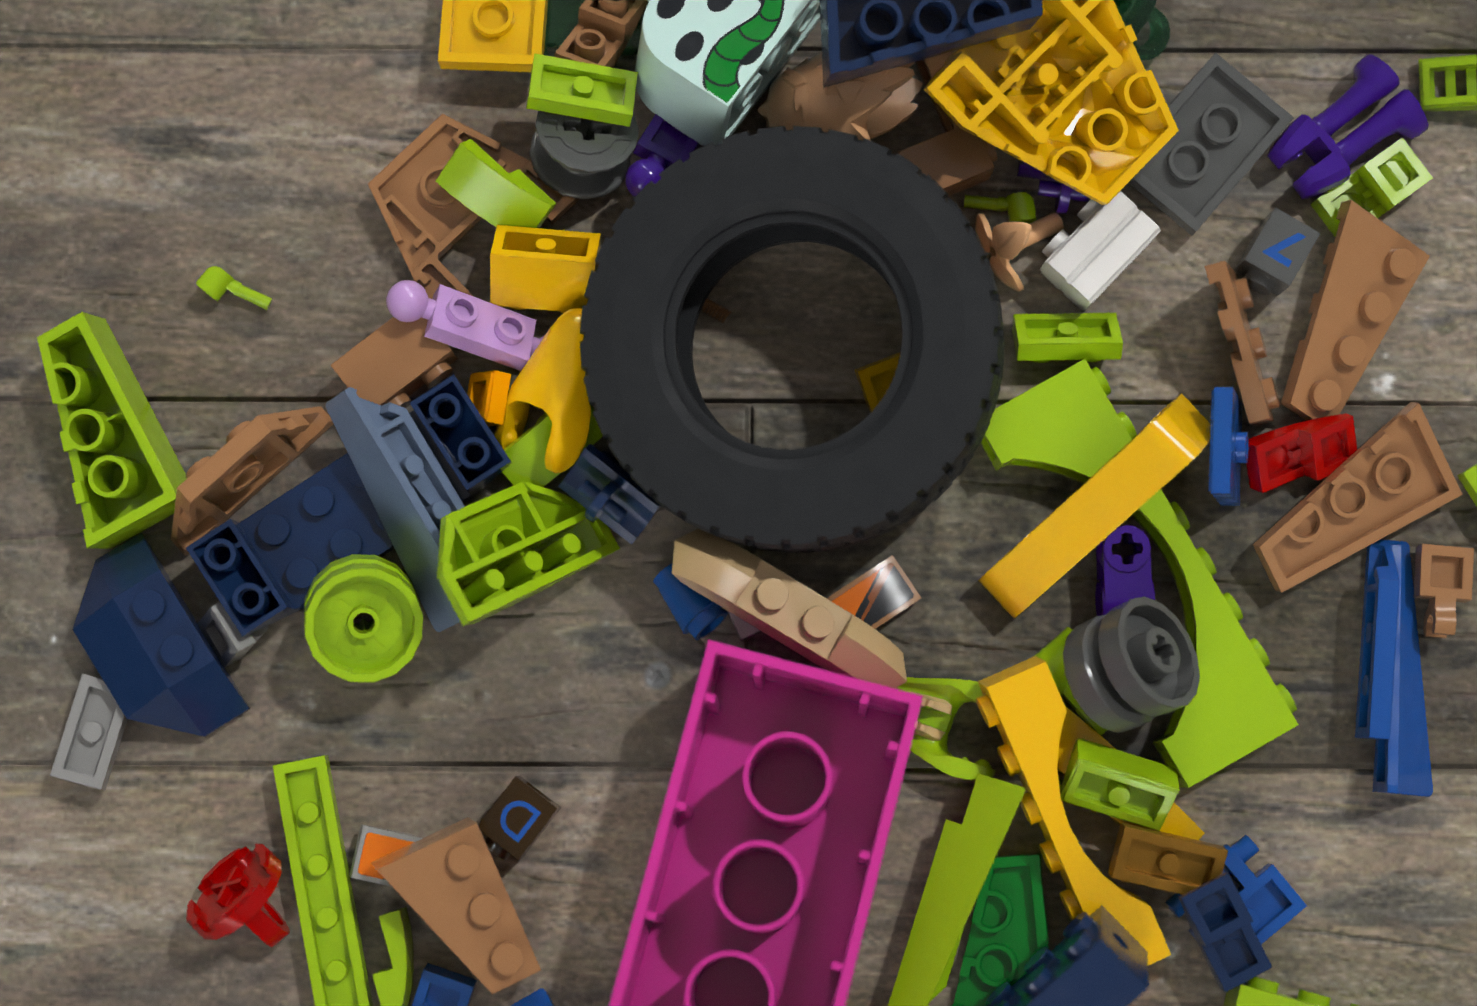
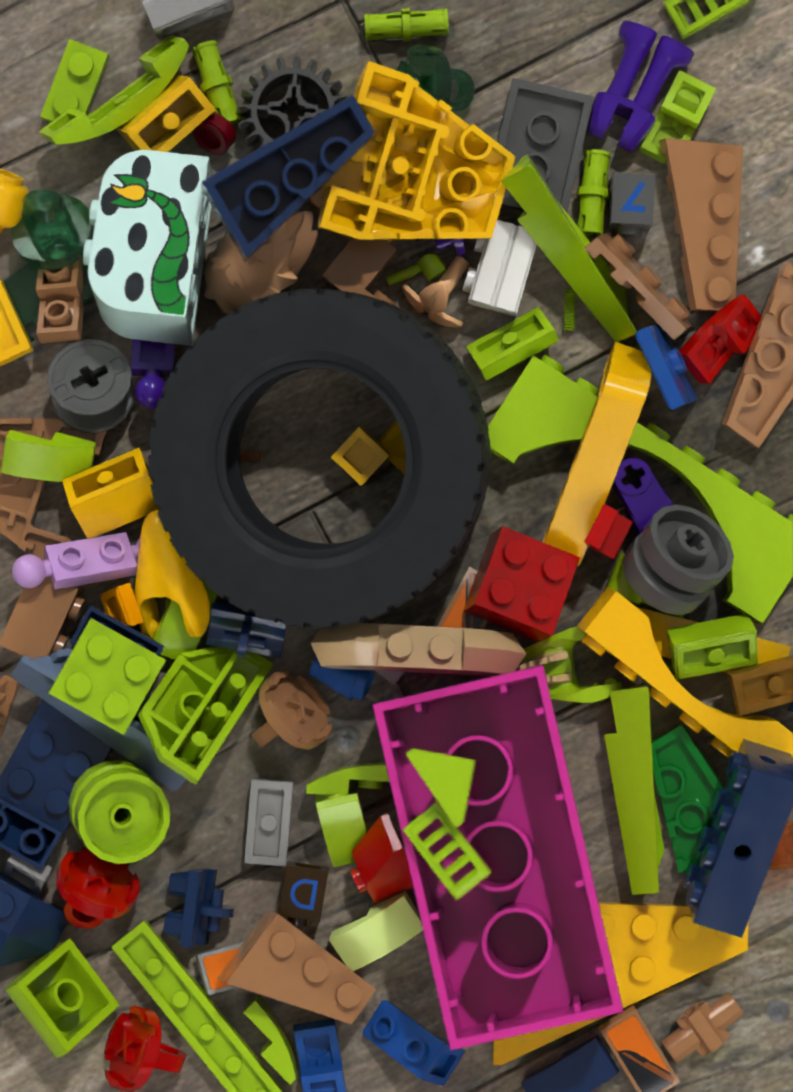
camera: 25 degrees left, 5 degrees up
(187, 792) = (62, 997): none -> lime brick
(290, 690) = (95, 888): none -> red tile
(394, 776) = (201, 909): none -> dark blue hips
(429, 458) = (106, 676): none -> lime plate
(521, 720) = (268, 822): none -> light grey plate
(576, 908) = (378, 933): none -> yellowish green slope
(582, 90) = (71, 352): lime plate -> none
(601, 771) = (341, 826): none -> lime slope
(613, 610) = (292, 711): none -> medium nougat tile
(616, 715) = (338, 780): none -> lime slope
(623, 829) = (381, 862): none -> red slope
(714, 894) = (470, 854): none -> lime slope
(750, 766) = (448, 780): none -> lime slope
(837, 370) = (361, 455): none -> yellow tile
(941, 602) = (521, 584): none -> red brick
(1067, 595) = (608, 532): none -> red slope
(1146, 333) = (569, 304): none -> lime leg
(1181, 264) = (565, 248): none -> lime wedge
(1240, 219) = (593, 192): none -> lime pin

